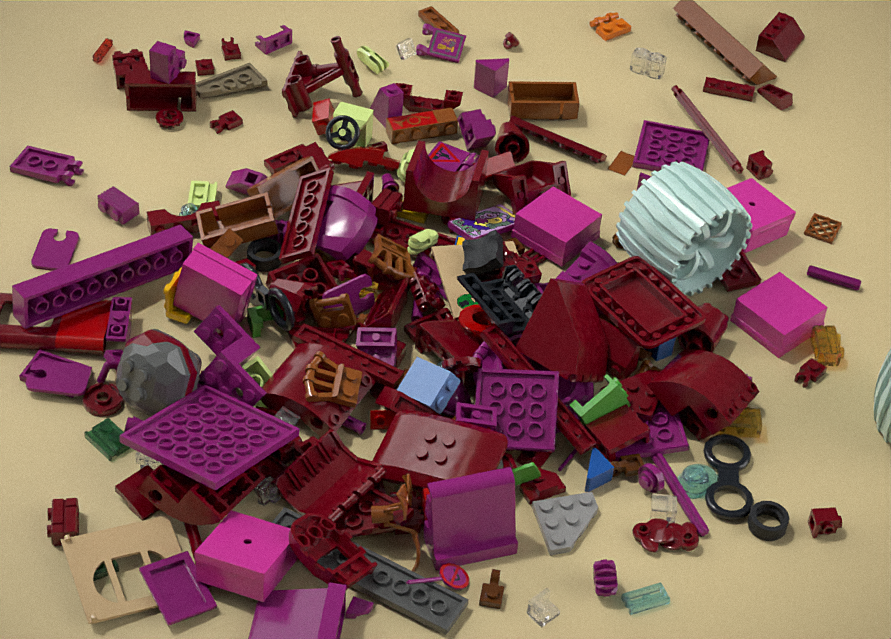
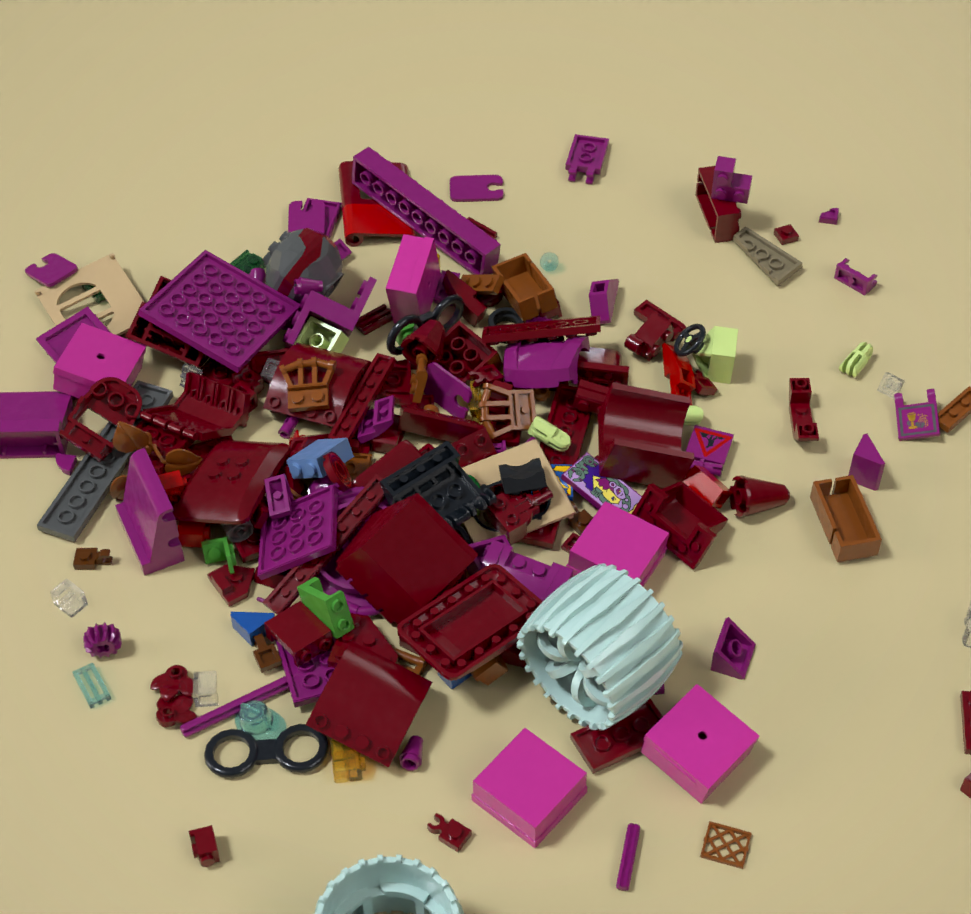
camera: 85 degrees right, 5 degrees up
(59, 604) = (53, 272): none -> magenta piece
(64, 519) = (142, 257): dark red brick -> none
(102, 50) = (777, 158): clear red axle -> none
(118, 205) = (543, 212): magenta brick -> none
(120, 319) = (378, 242): magenta slope -> none
(127, 61) = (762, 180): dark red hips -> none
(162, 220) = (528, 242): dark red arch -> none
(174, 114) = (691, 218): dark red gear -> none
(202, 192) = (579, 267): yellowish green plate -> none
(202, 362) = (305, 285): none -> magenta cone
(228, 120) = (704, 267): dark red plate -> none
(230, 50) = (824, 249): dark red plate -> none
(283, 185) = (615, 321): dark orange piece -> none
(308, 77) = (782, 302): dark red plate -> none
(322, 114) = (745, 328): red brick -> none
(387, 103) = (767, 379): magenta slope -> none
(421, 125) = (757, 417): dark orange brick -> none
(450, 574) = (104, 525): magenta piece -> none
(476, 129) = (757, 458): magenta brick -> none
(512, 39) = (959, 480): dark red tile -> none
(564, 143) = (785, 544): dark red plate -> none
(564, 520) = (187, 607): light grey plate -> none
(622, 163) = (776, 617): dark orange sticker -> none
(651, 478) = (243, 672): magenta plate -> none
(665, 143) = (819, 666): magenta tile -> none
(708, 334) = (475, 705): dark red cylinder -> none
(710, 133) = (863, 695): dark red piece -> none
(759, 165) = (818, 761): dark red brick -> none
(765, 532) = (197, 775): black tyre -> none
(826, 345) = (494, 845): clear yellow brick -> none

